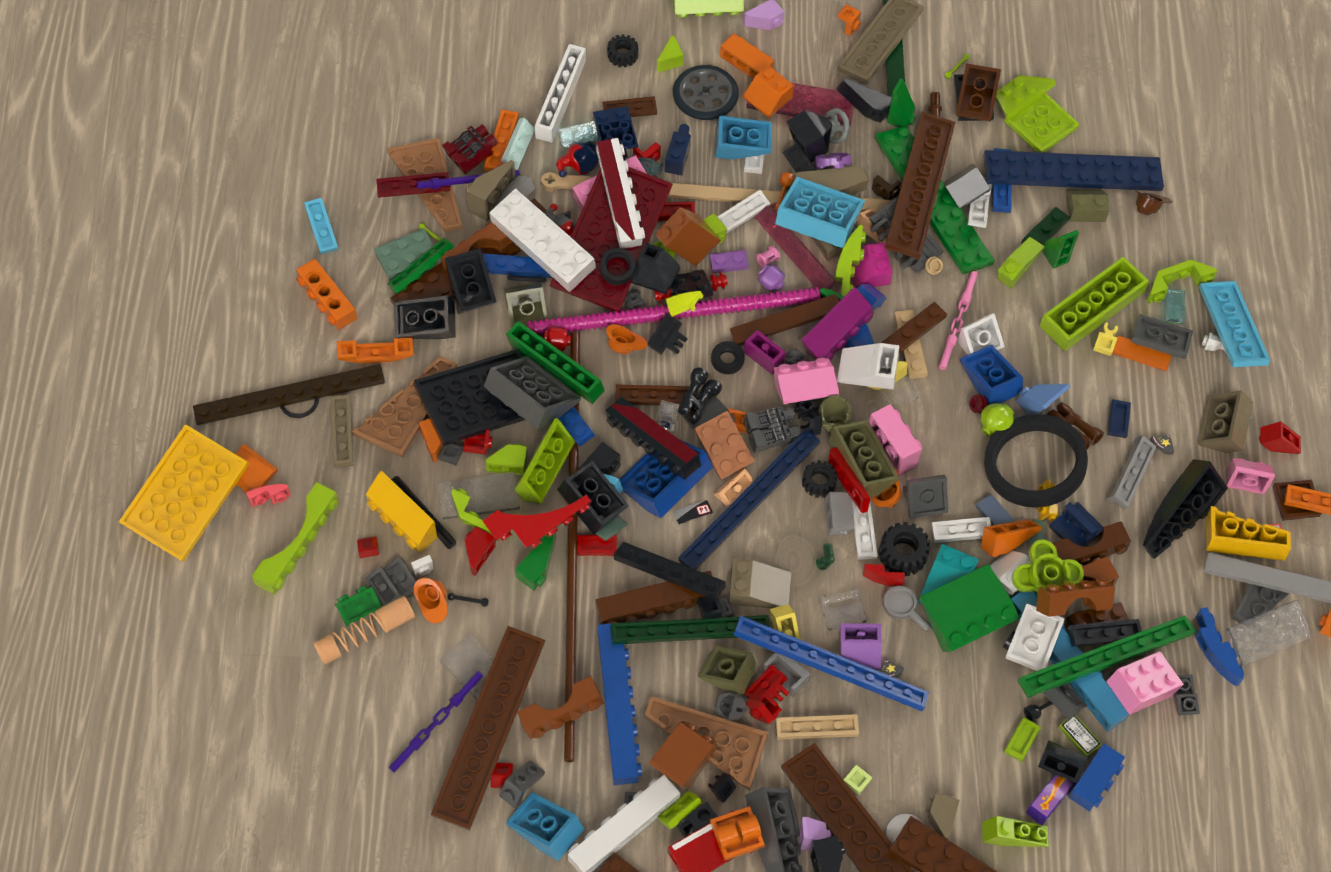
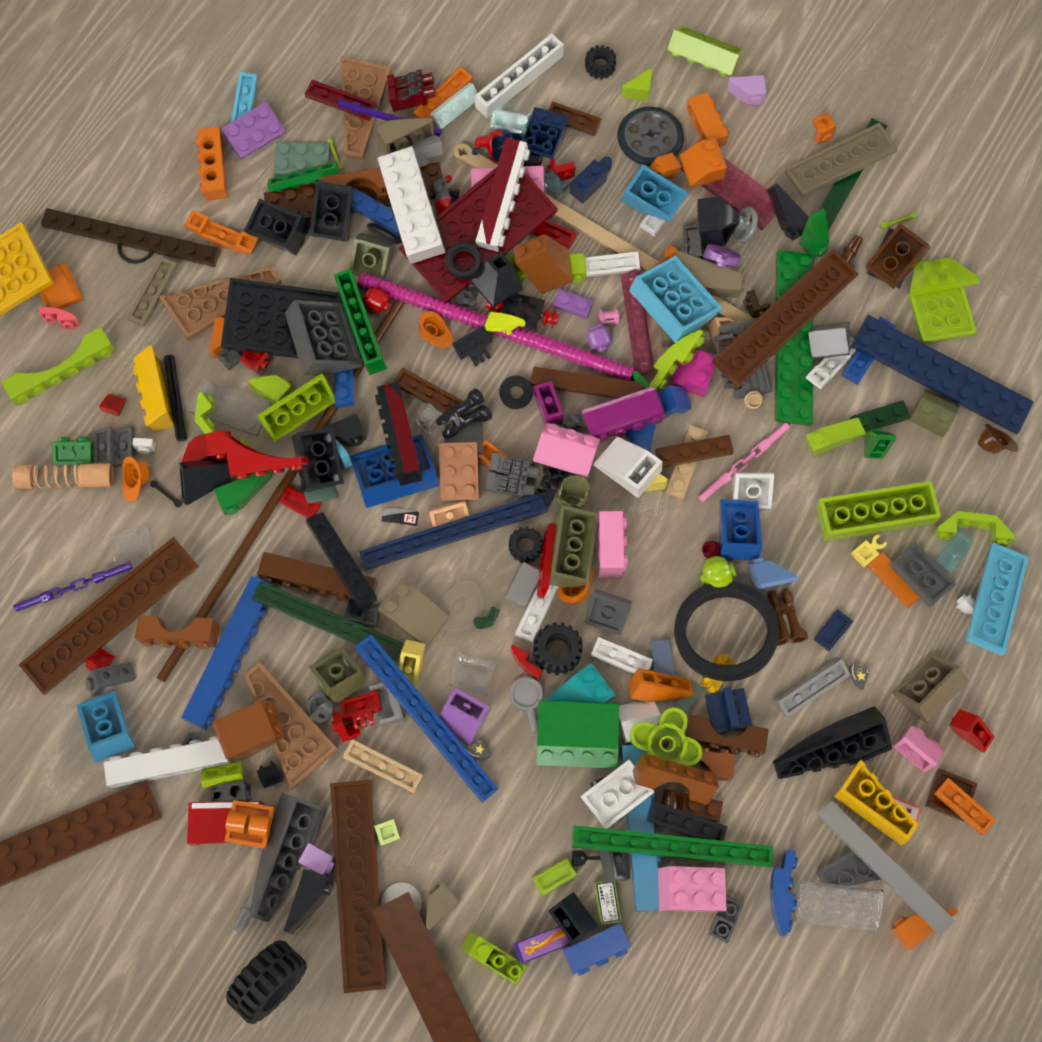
camera: 30 degrees right, 10 degrees up
(346, 248) = (253, 130): none -> medium lavender plate
(496, 566) = (202, 477): none -> black slope
(737, 108) = (666, 166): none -> orange brick

